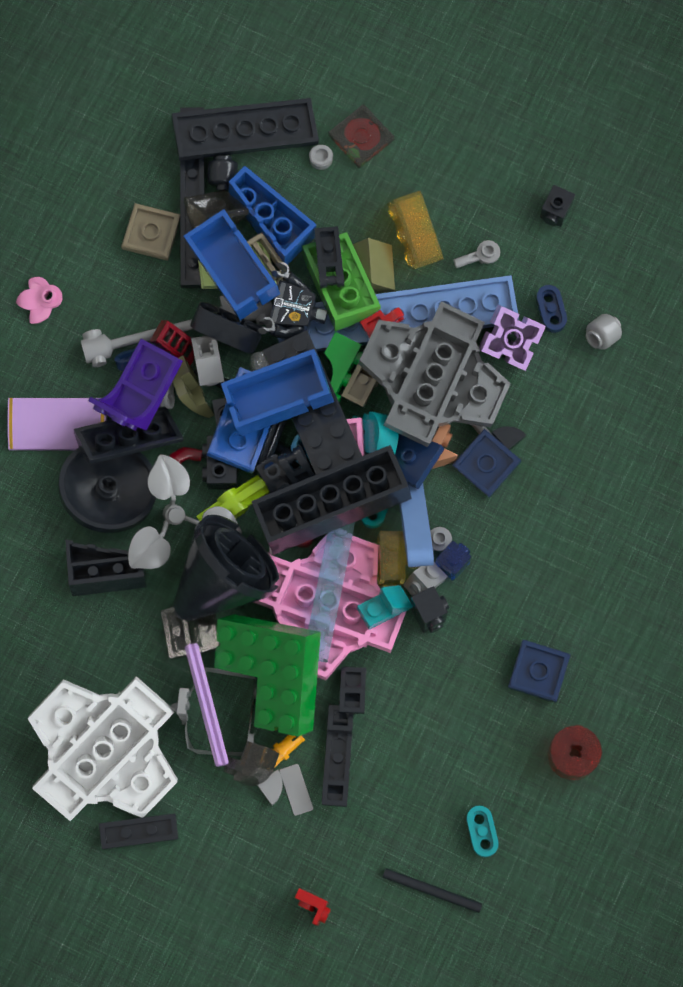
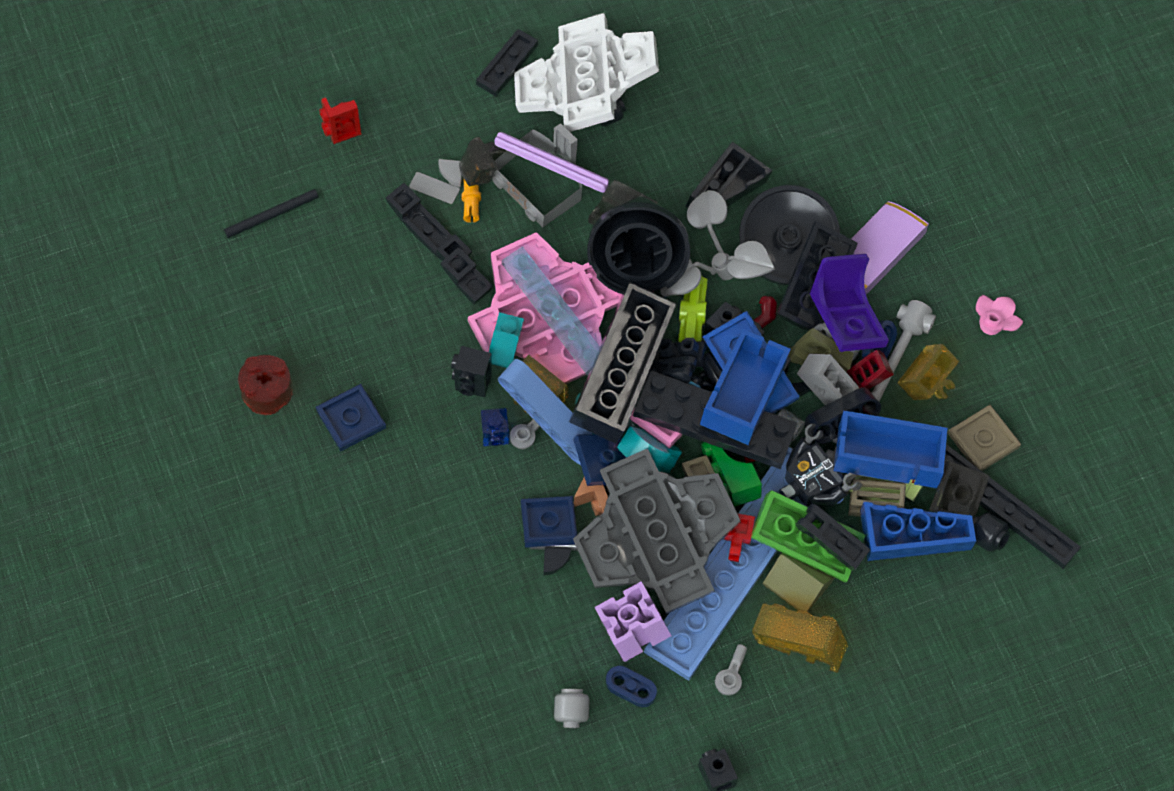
camera: 130 degrees right, 10 degrees down
(135, 302) = (929, 373): none -> clear yellow brick
(244, 129) = (1014, 579): black plate -> none
(285, 664) = (530, 229): green piece -> none
(321, 157) = (937, 626): light grey tile -> none
(361, 136) = (928, 674): clear smoke tile -> none
(424, 578) = (499, 398): light grey bracket -> none
(482, 831) = (278, 277): teal plate -> none

